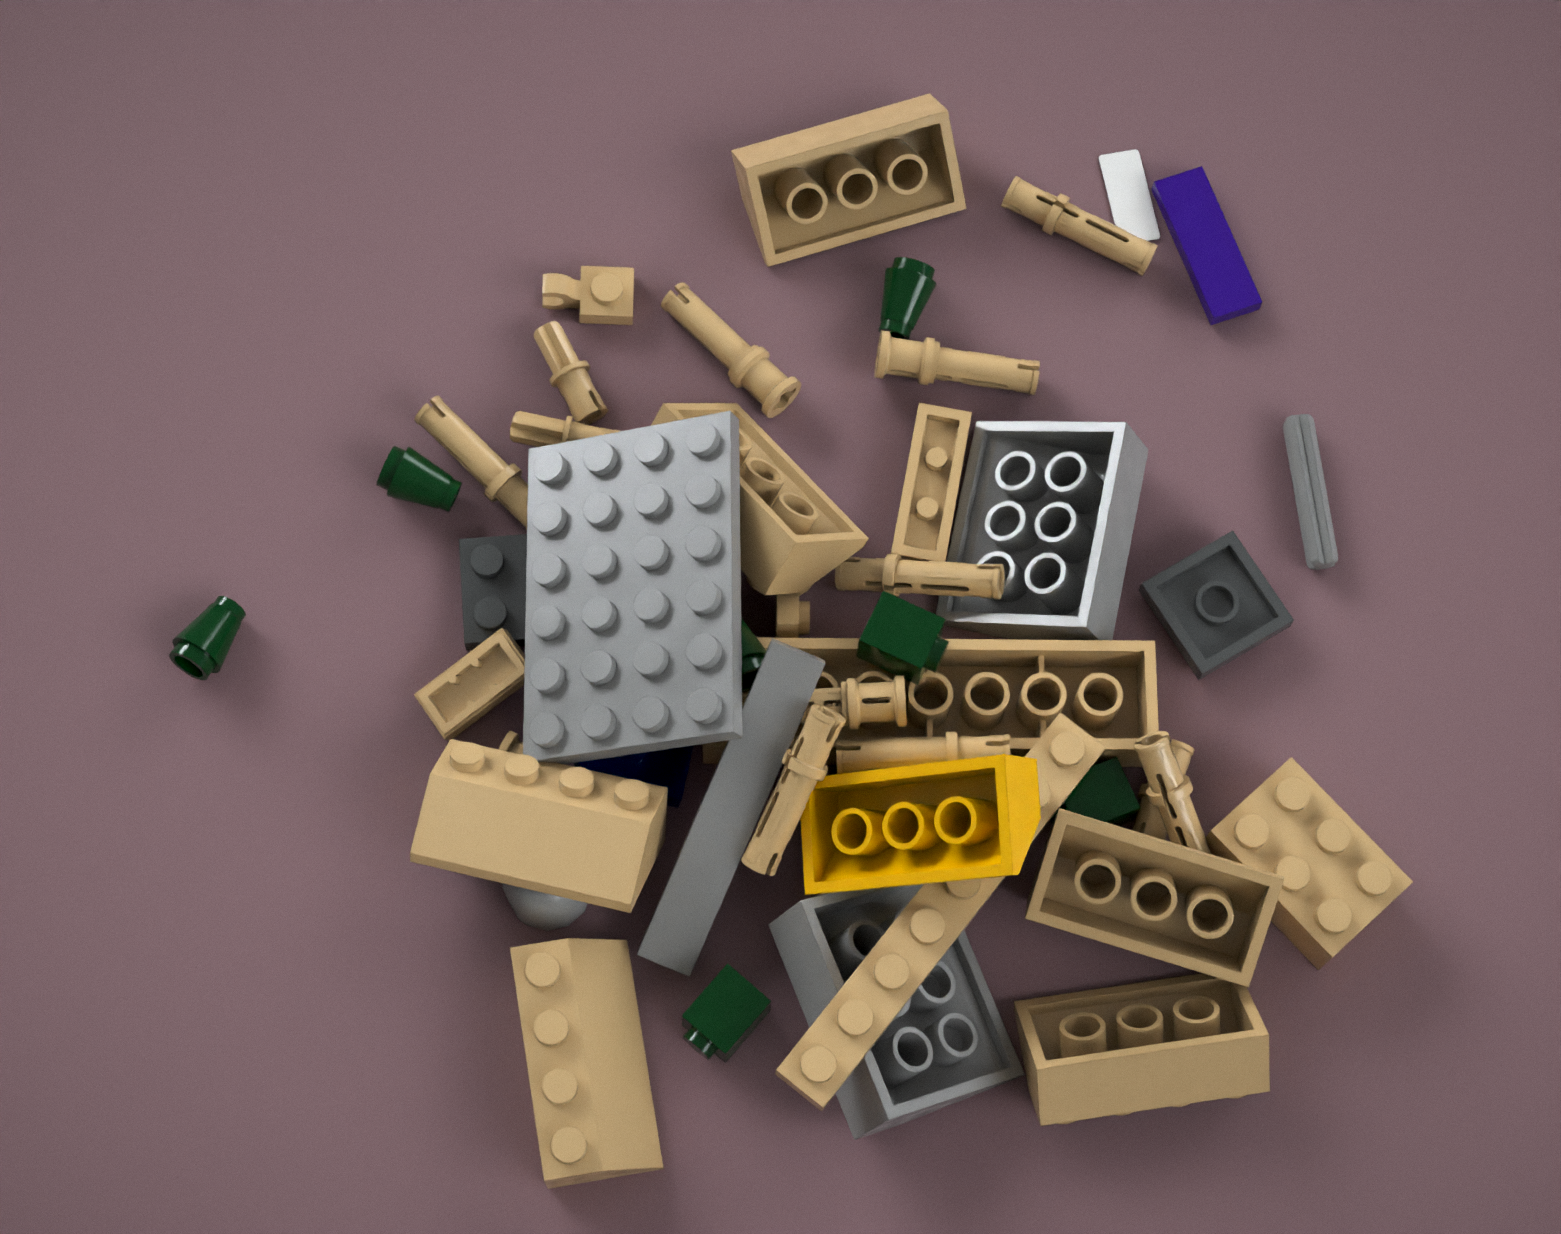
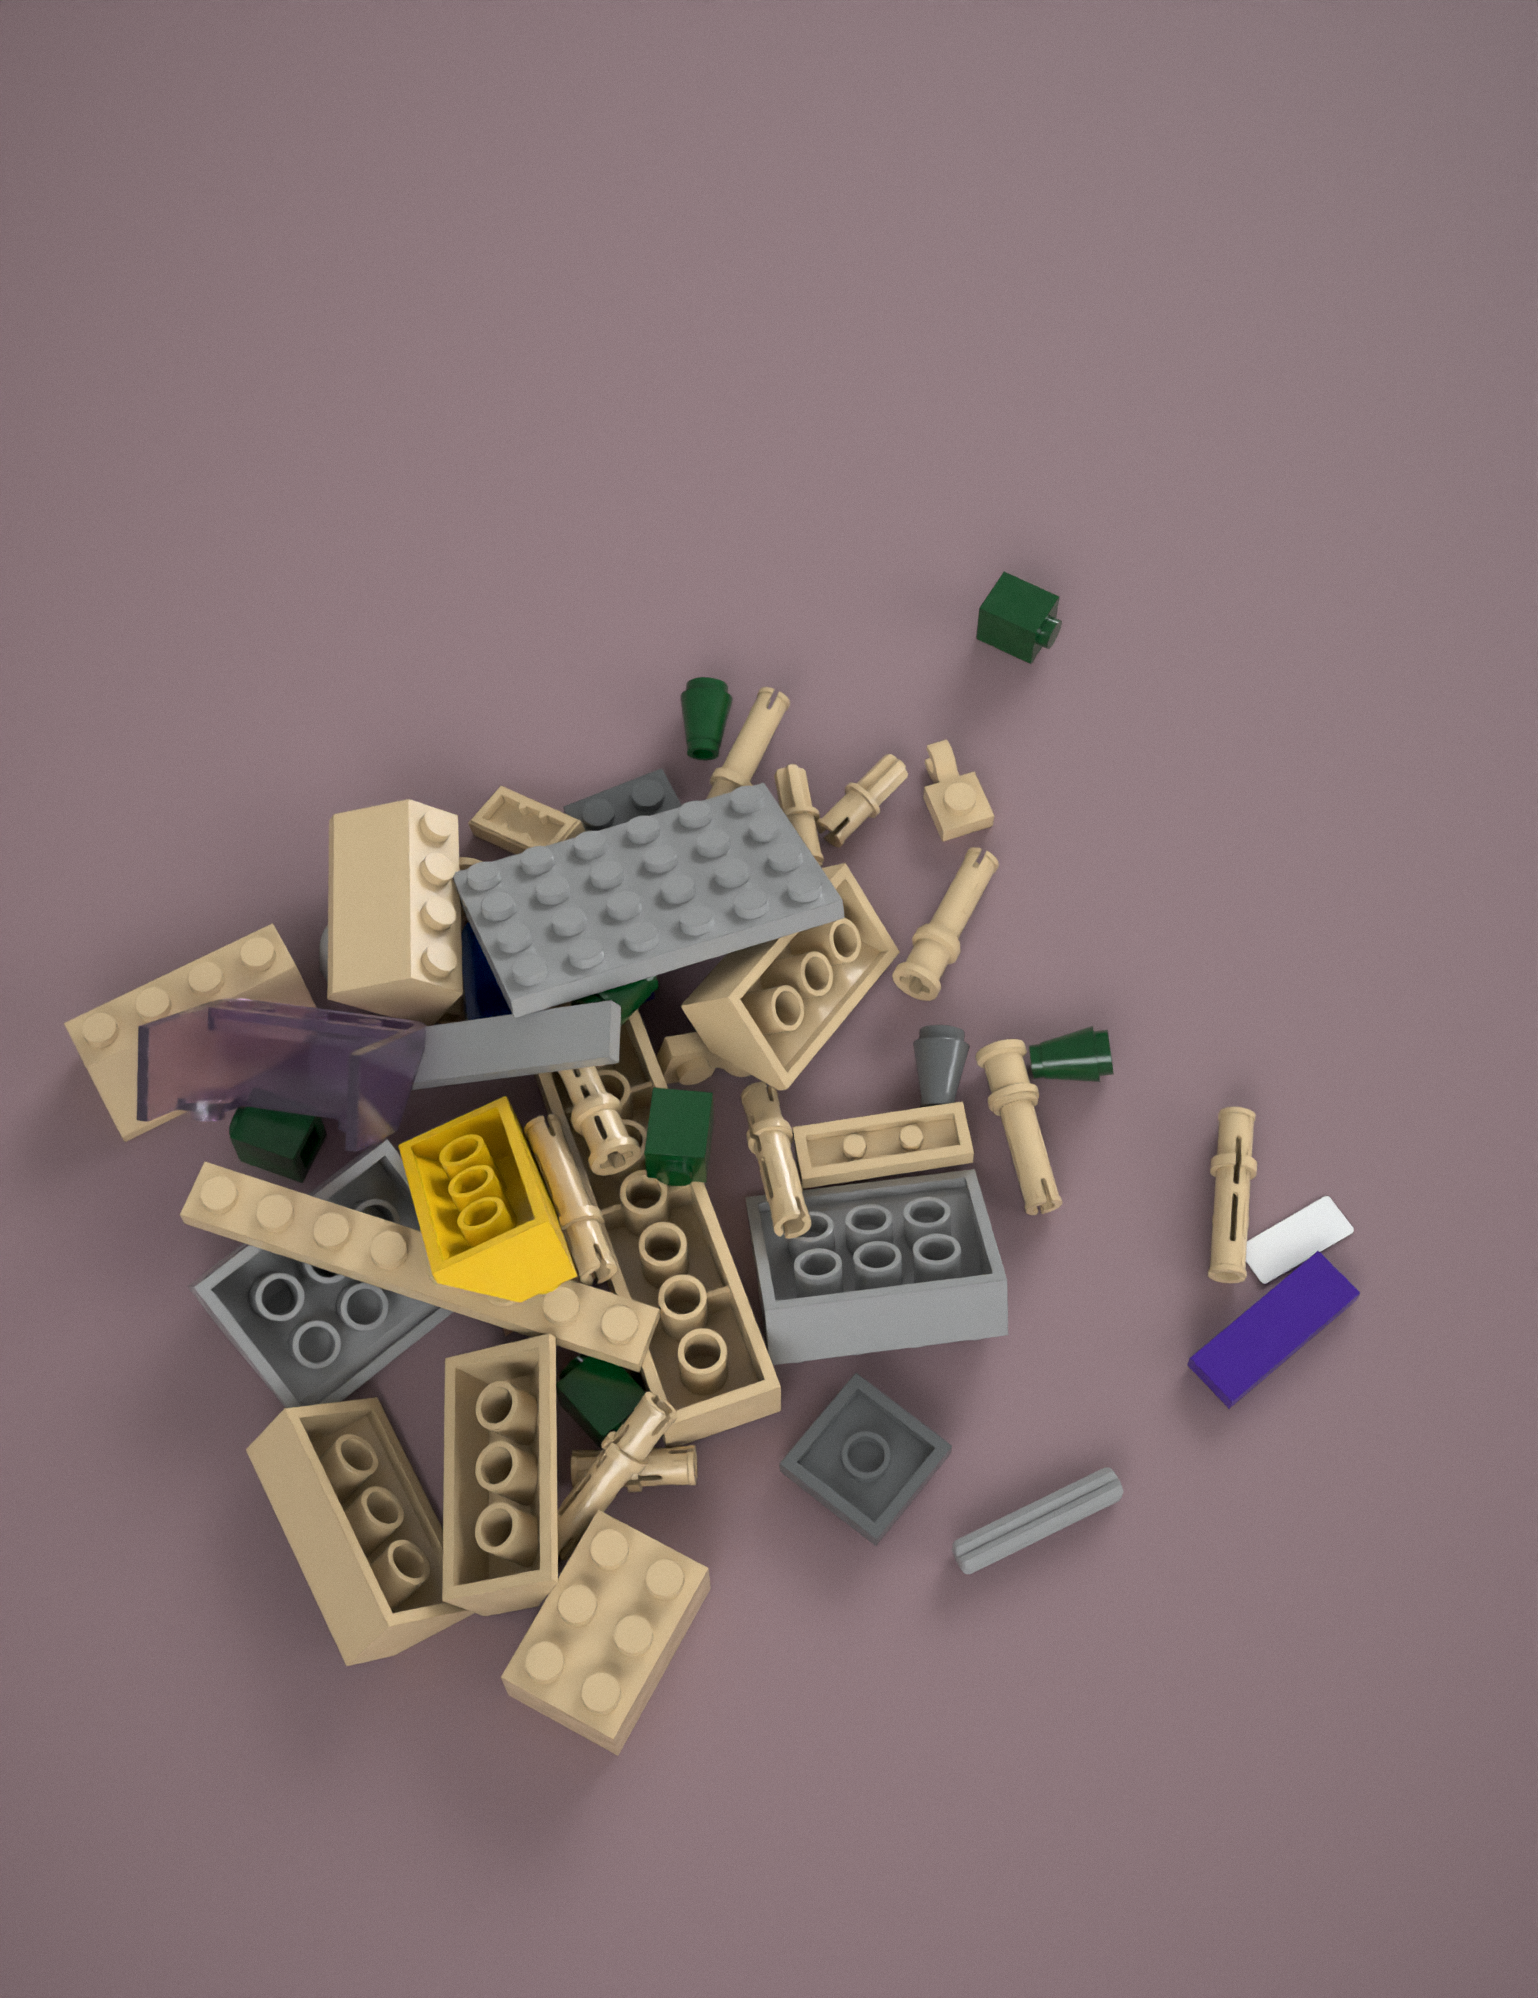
camera: 75 degrees right, 10 degrees down
(207, 639) = (493, 615): dark green cone -> none
(429, 162) = (1018, 618): none -> dark green brick
(686, 956) = (281, 1061): none -> clear purple windscreen
(798, 779) = (506, 1086): tan pin -> none
(850, 179) = (1176, 965): tan slope -> none
(873, 410) = (940, 1063): none -> dark grey cone

